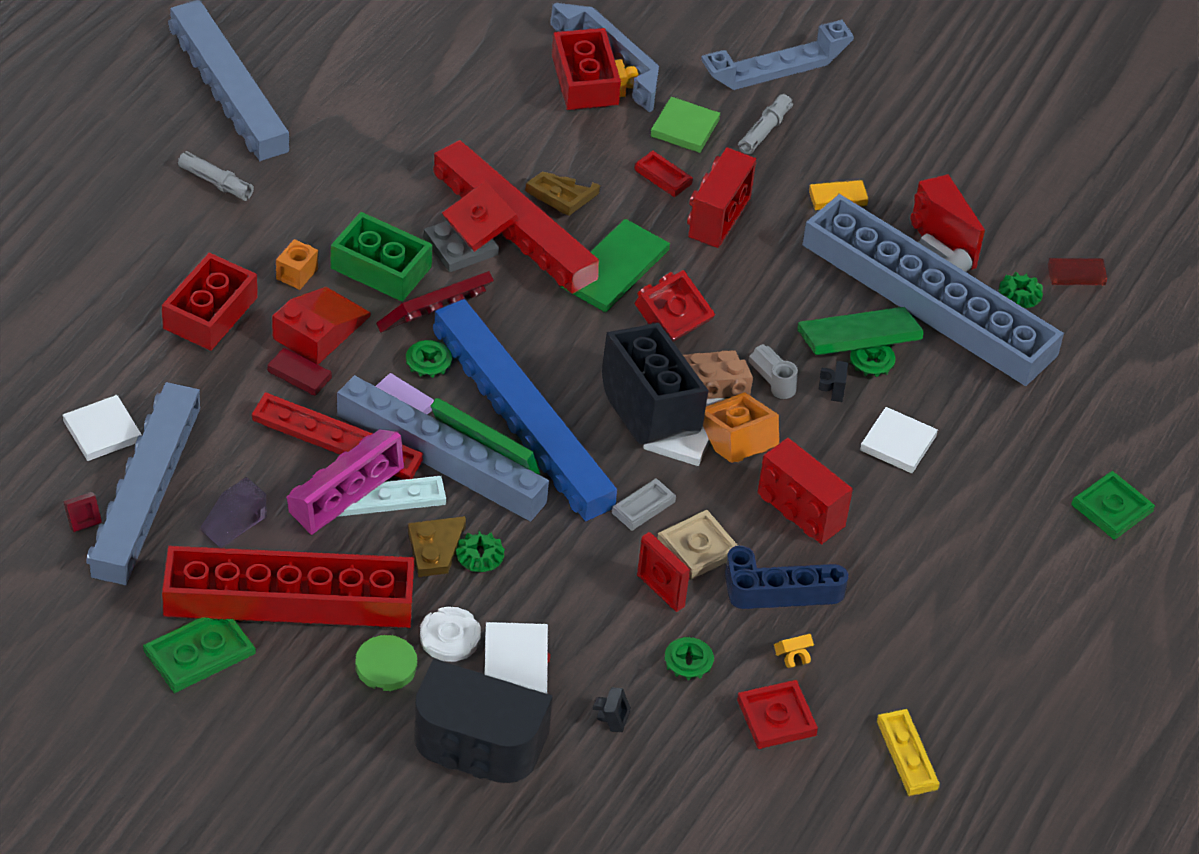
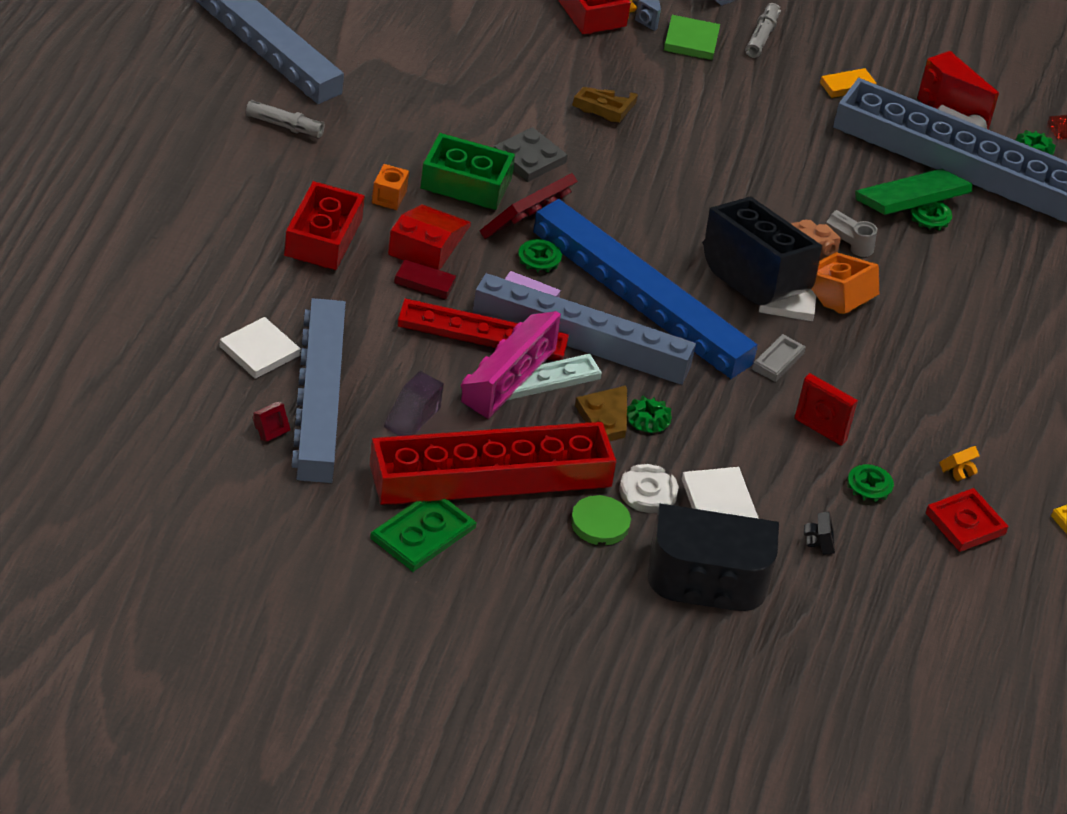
camera: 15 degrees left, 5 degrees down
(480, 216) = (547, 127): red plate -> none
(483, 434) = (624, 308): green tile -> none
(534, 231) = (575, 126): red brick -> none
(622, 261) = (675, 160): green tile -> none
(663, 173) = (688, 79): red tile -> none
(674, 305) = (741, 180): red plate -> none
(698, 543) = (847, 379): tan tile -> none
(721, 197) = (752, 91): red brick -> none
(781, 586) = (926, 411): dark blue beam -> none
(804, 490) = (922, 327): red brick -> none
(835, 380) = (908, 235): black tile -> none
(898, 440) = (979, 279): white tile -> none

